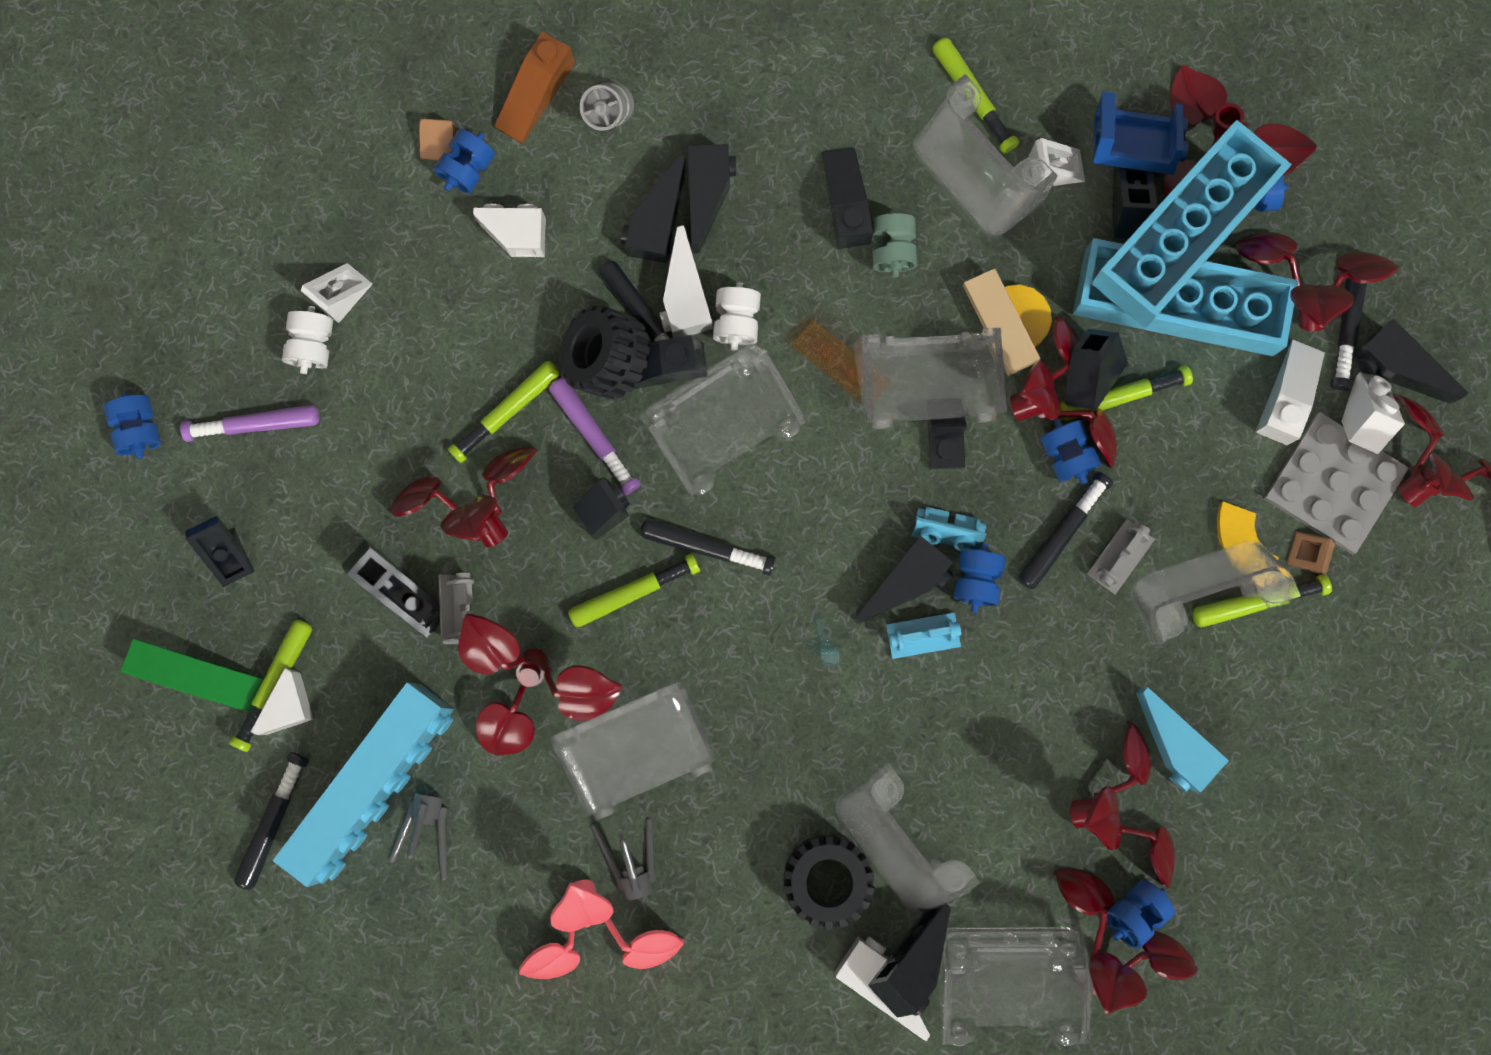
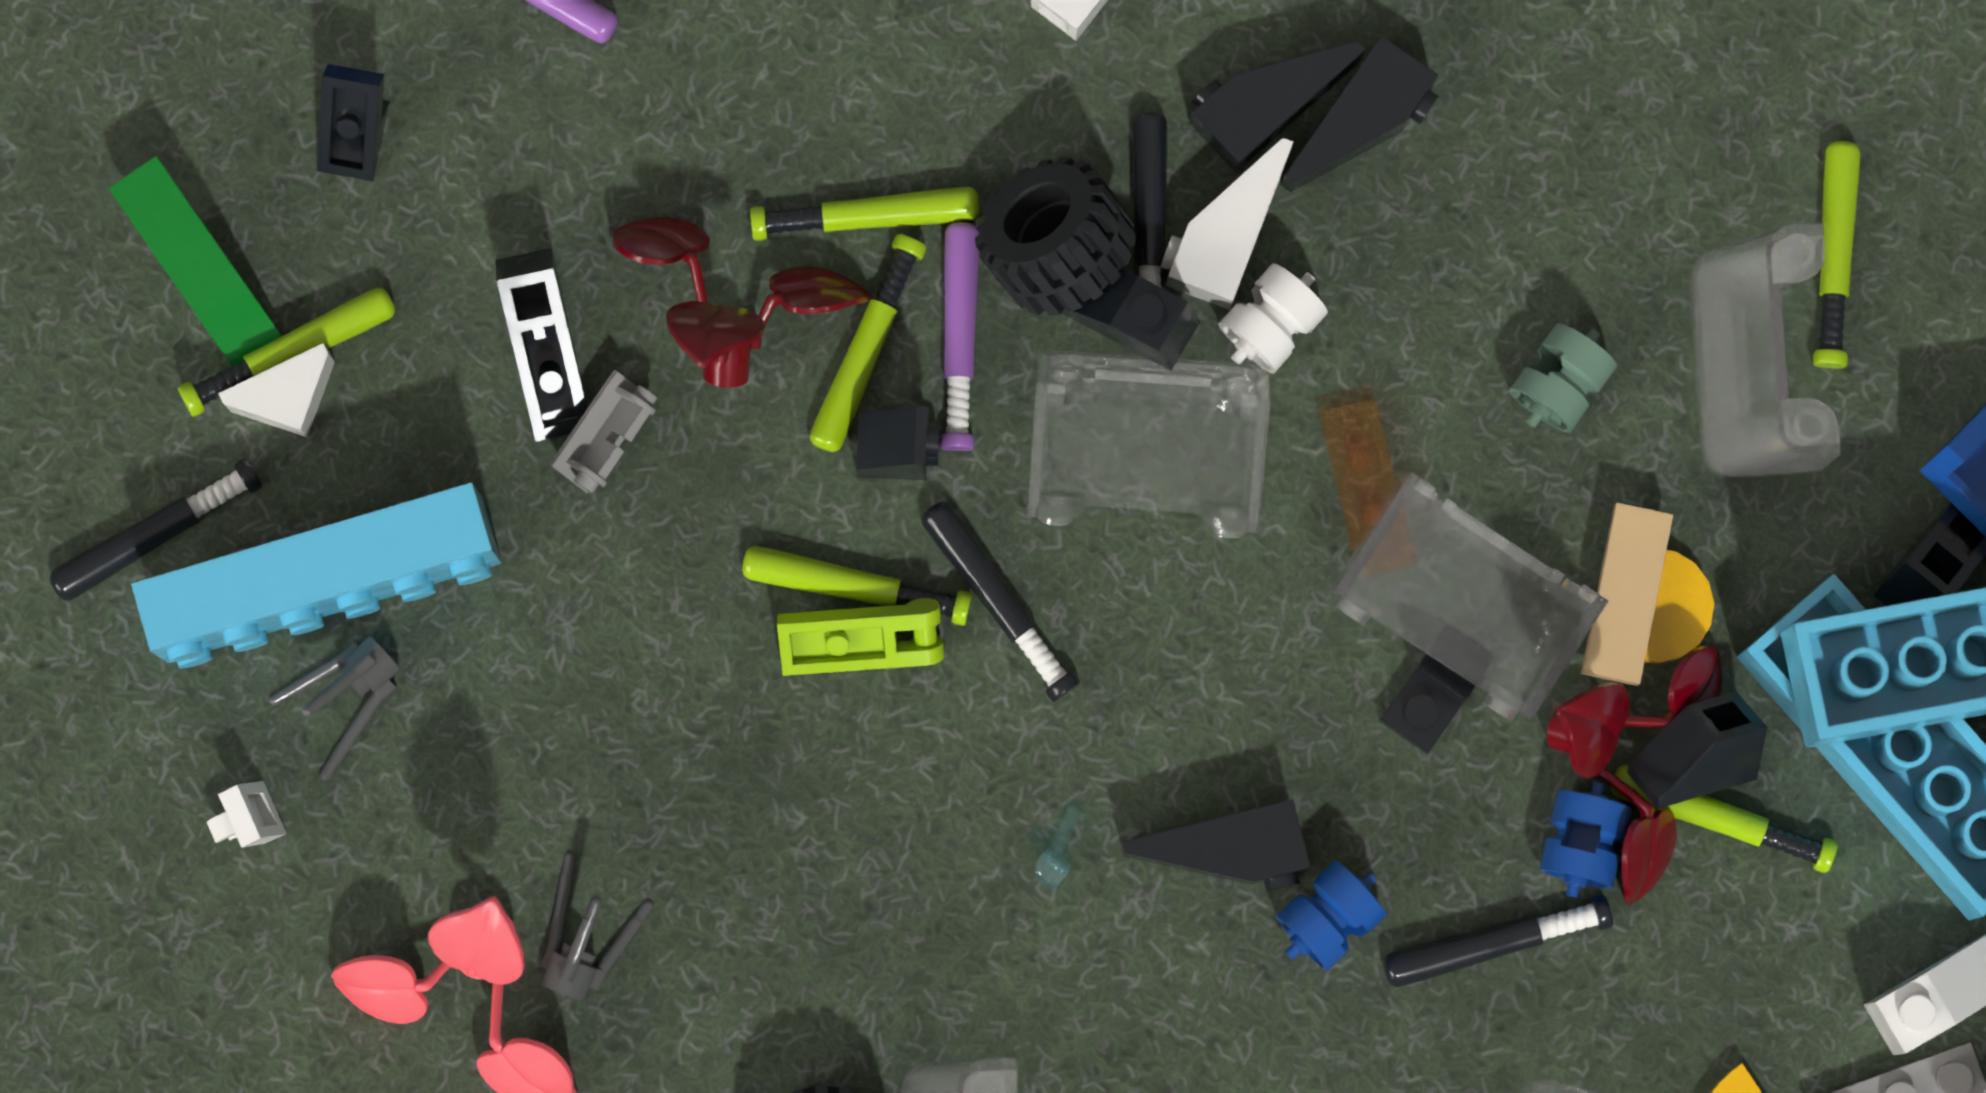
camera: 30 degrees right, 0 degrees up
(420, 927) = (248, 816): none -> white tile
(503, 731) = (546, 640): dark red plant -> none
(556, 488) = (861, 357): none -> lime piece
(634, 749) = (700, 794): clear windscreen -> none
(654, 615) = (860, 638): none -> lime plate
(847, 199) = (1548, 266): black slope -> none
(924, 635) = (1198, 936): medium azure hinge -> none
(963, 534) = (1322, 804): medium azure hinge -> none
(1061, 159) = (1876, 435): white slope -> none
(1121, 556) = (1547, 1032): light grey hinge -> none

